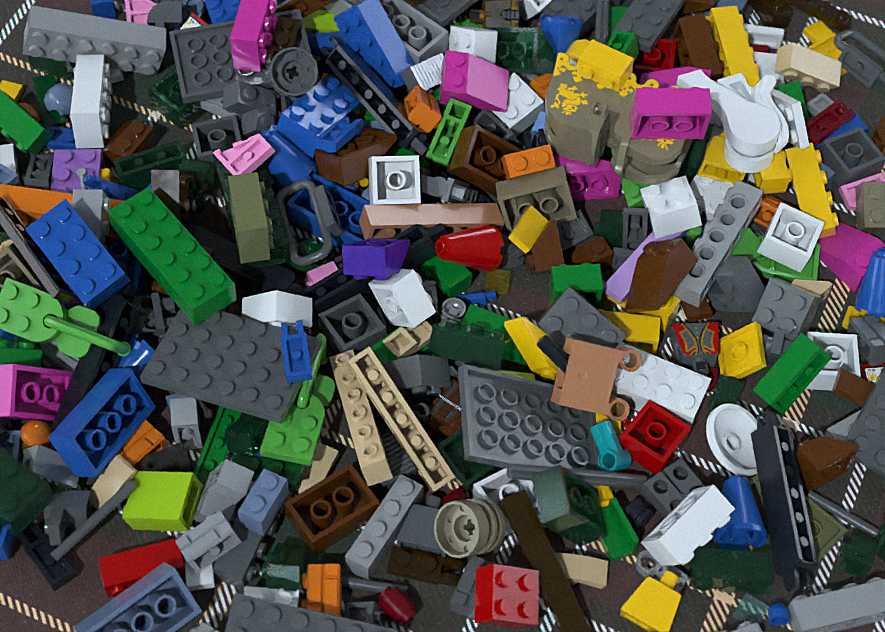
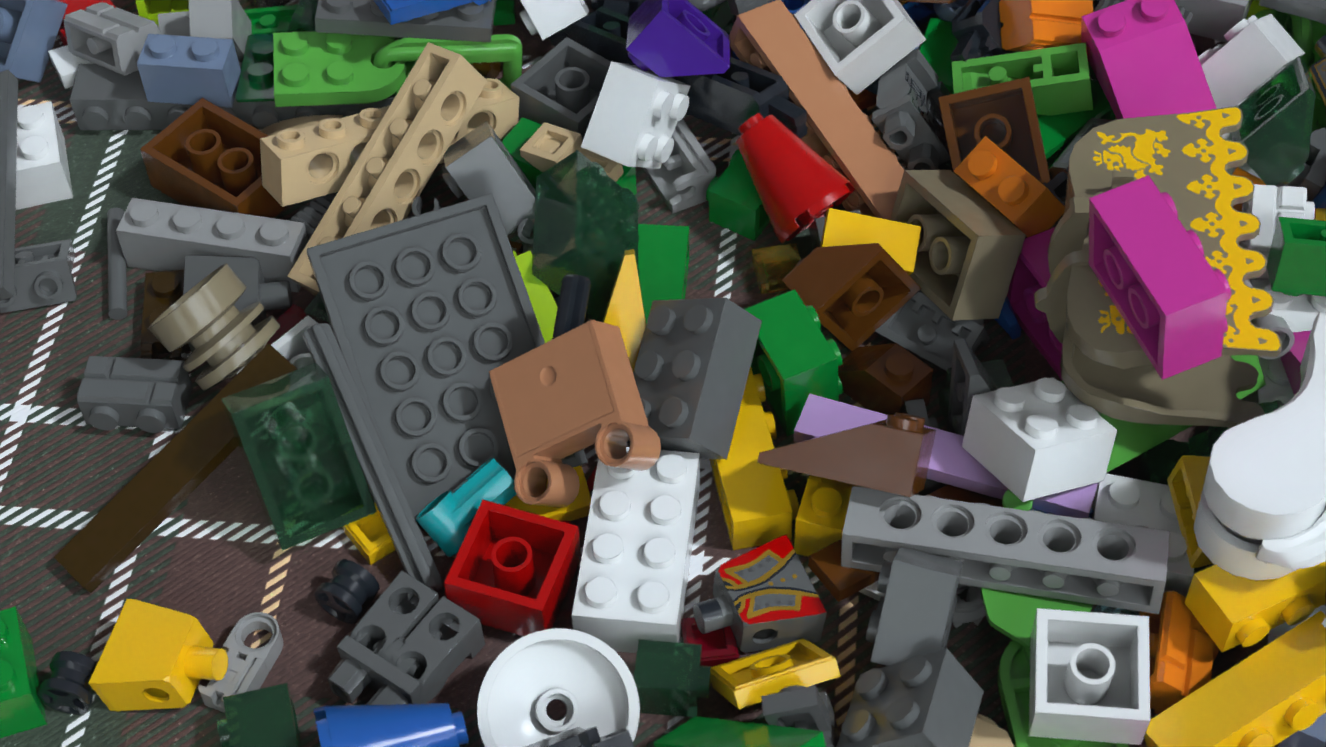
camera: 75 degrees right, 5 degrees down
(285, 567) = (98, 140): clear green brick -> none
(323, 588) = (73, 203): orange brick -> none
(397, 605) = (77, 300): dark red brick -> none
(453, 308) = (671, 208): light grey wheel -> none
(477, 297) = (730, 251): blue bar -> none
(506, 596) = (104, 419): red brick -> none
(583, 569) = (212, 534): tan slope -> none
(605, 65) = (1233, 166): yellow brick -> none
(621, 537) = (301, 569): green panel -> none
(688, 526) = (298, 643): white brick -> none

